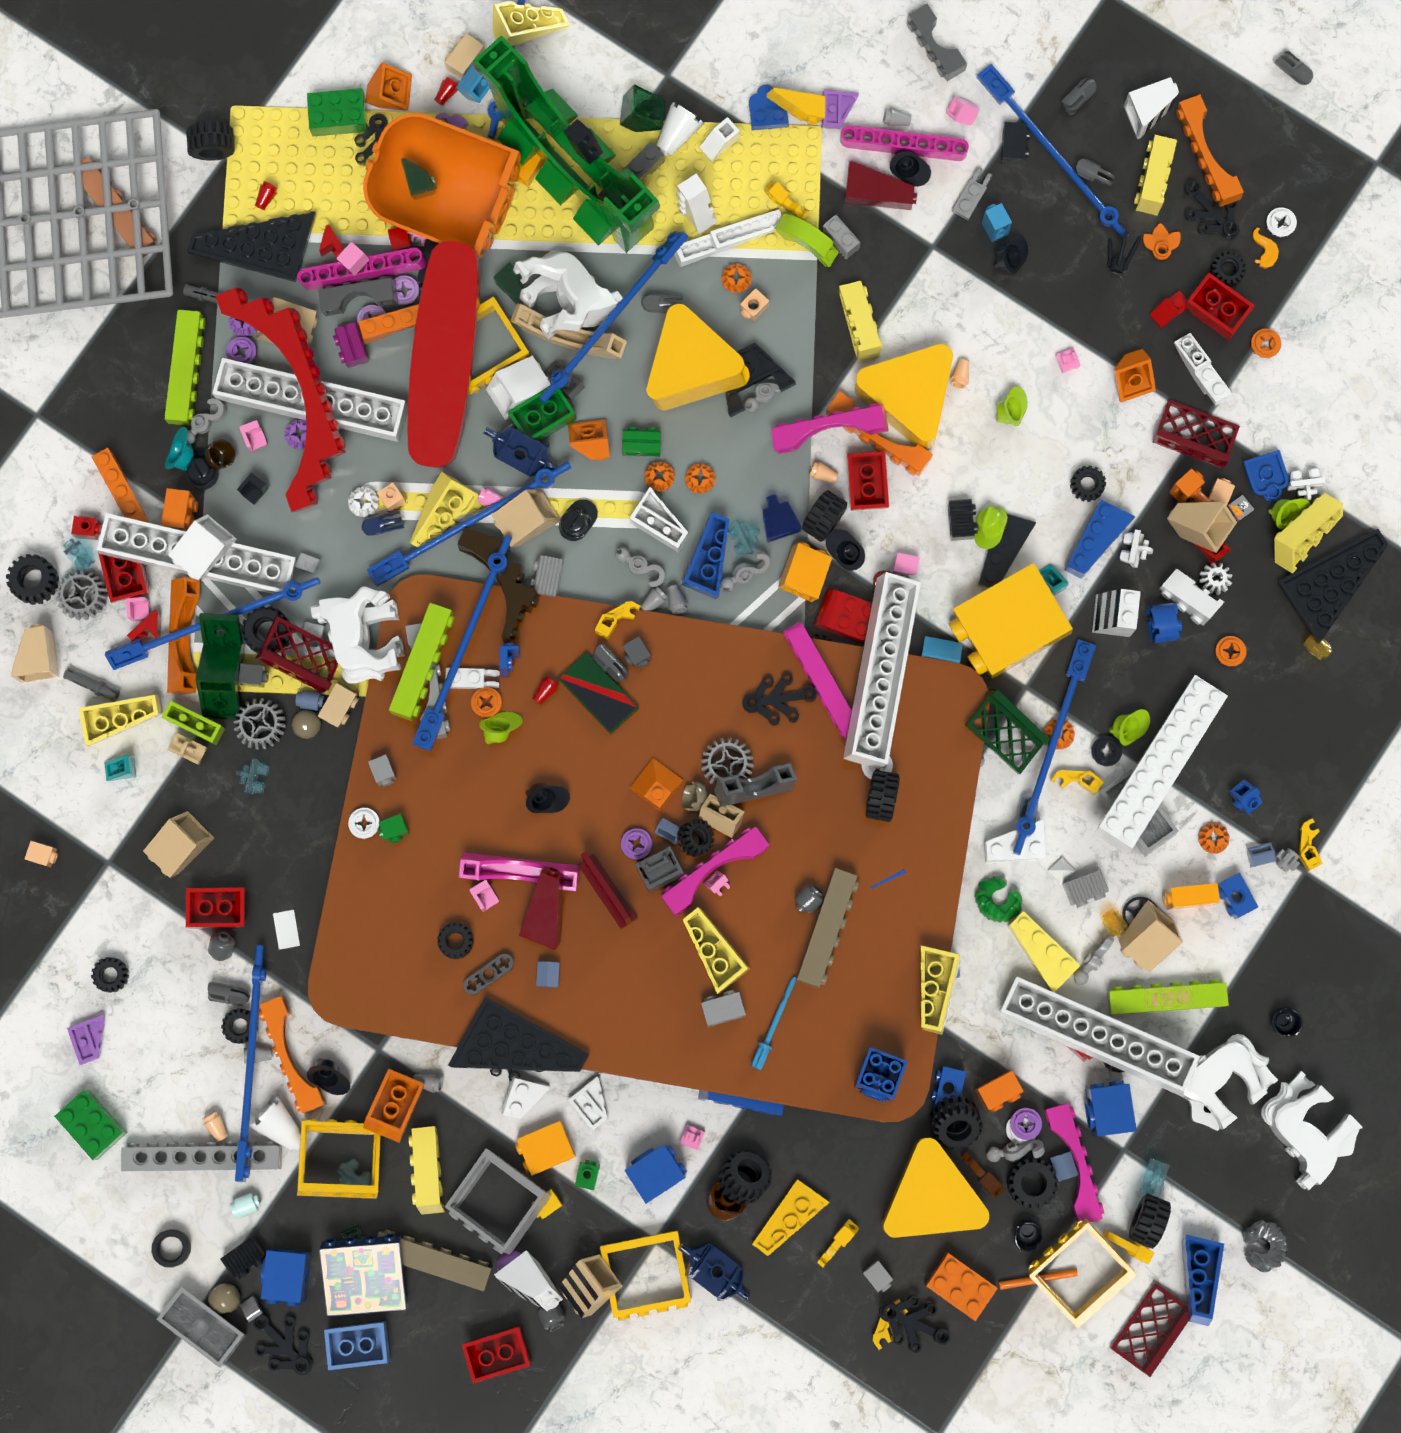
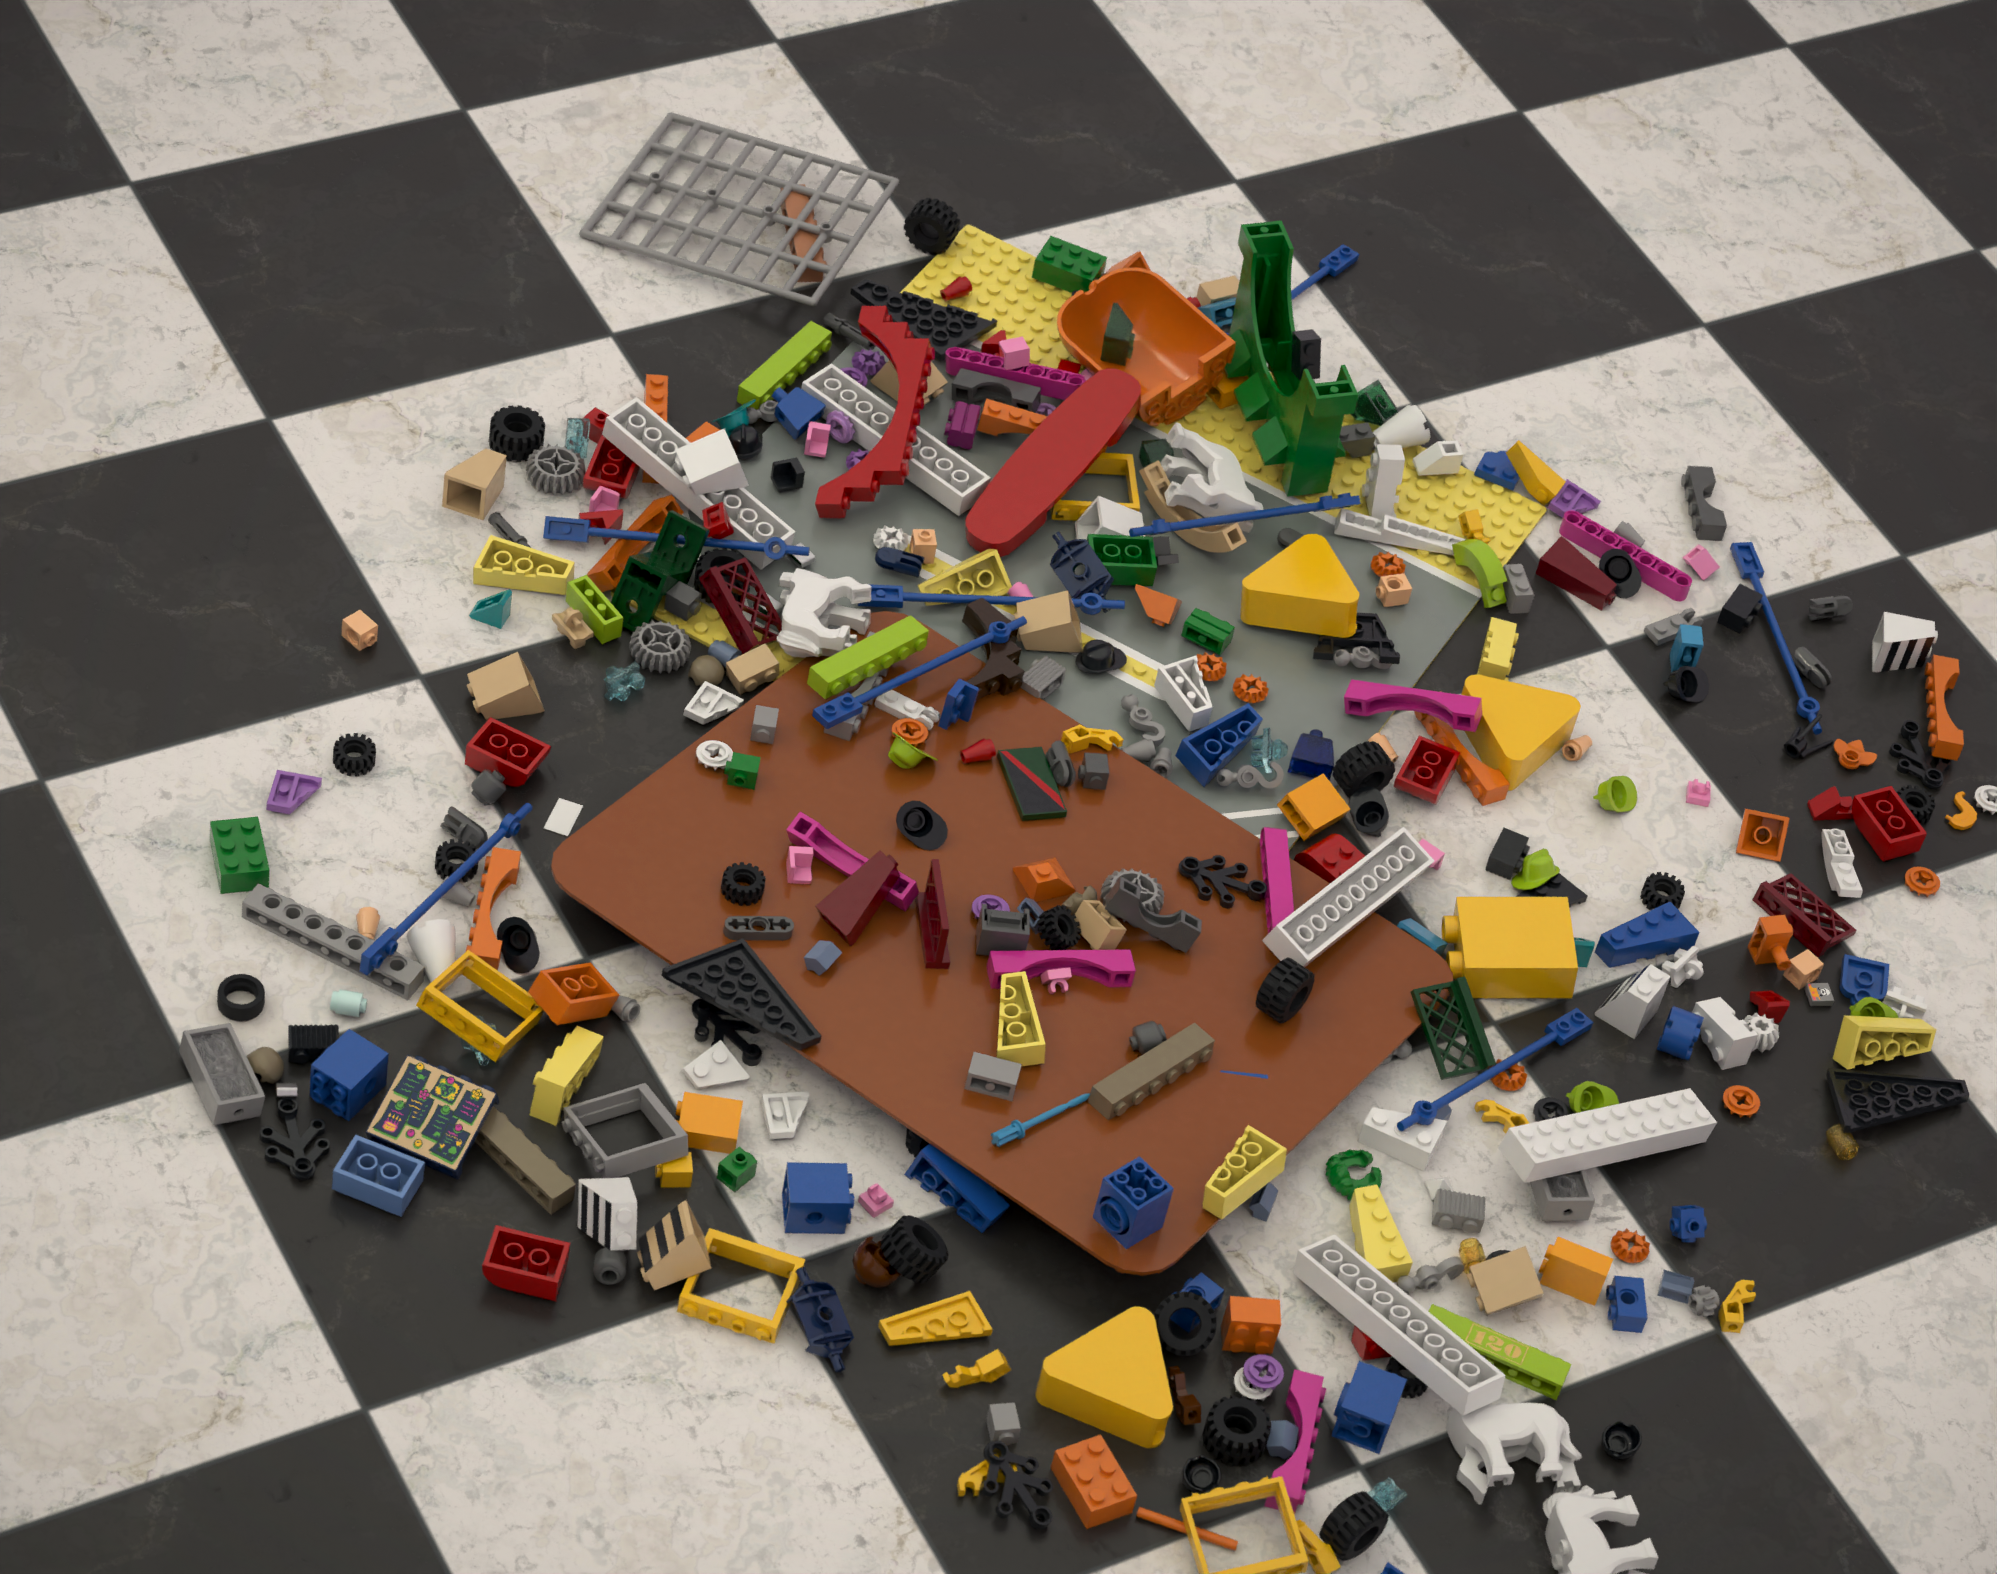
camera: 15 degrees right, 35 degrees down
(220, 454) = (774, 433): dark brown hair -> none
(222, 420) = (796, 410): none -> blue torso
(235, 593) = (717, 521): none -> red slope
(263, 414) = (841, 434): none -> lavender gear
(327, 754) = (711, 703): none -> white wing
(525, 22) = (1310, 304): light yellow wedge -> none
(1014, 1151) = (1209, 1387): light grey piece -> none
(1156, 174) = (1875, 699): light yellow wedge -> none
(1203, 523) = (1771, 967): tan slope -> none

